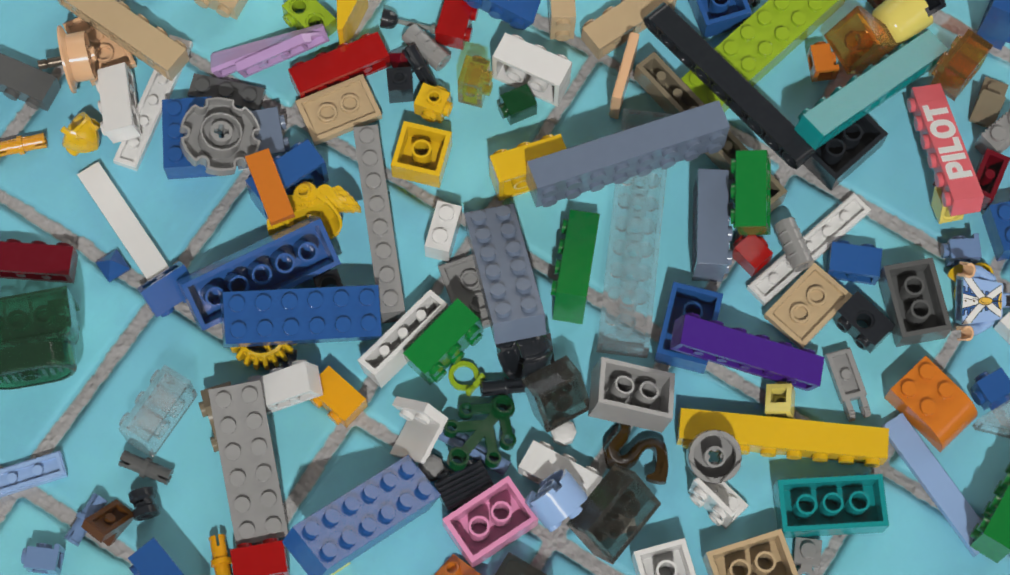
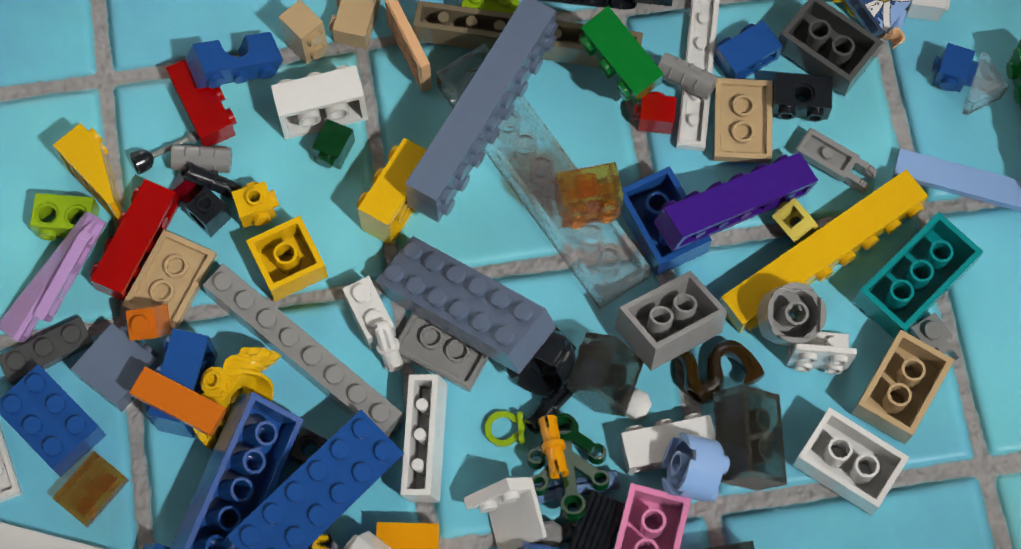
camera: 40 degrees left, 0 degrees up
(177, 201) = (90, 489): none -> clear orange plate
(202, 134) = (66, 399): light grey piece -> none
(299, 124) = (148, 322): none -> orange brick
(434, 261) = (388, 346): none -> white axle
(444, 342) = (465, 412): green brick -> none
(474, 81) = (277, 152): clear yellow brick -> none
(481, 411) = (553, 447): none -> light orange pin
(575, 266) = (516, 246): green wedge -> none
(644, 267) = (588, 195): none -> clear orange brick
(711, 225) = (602, 115): sand blue brick -> none
(932, 403) = (917, 119): orange brick -> none

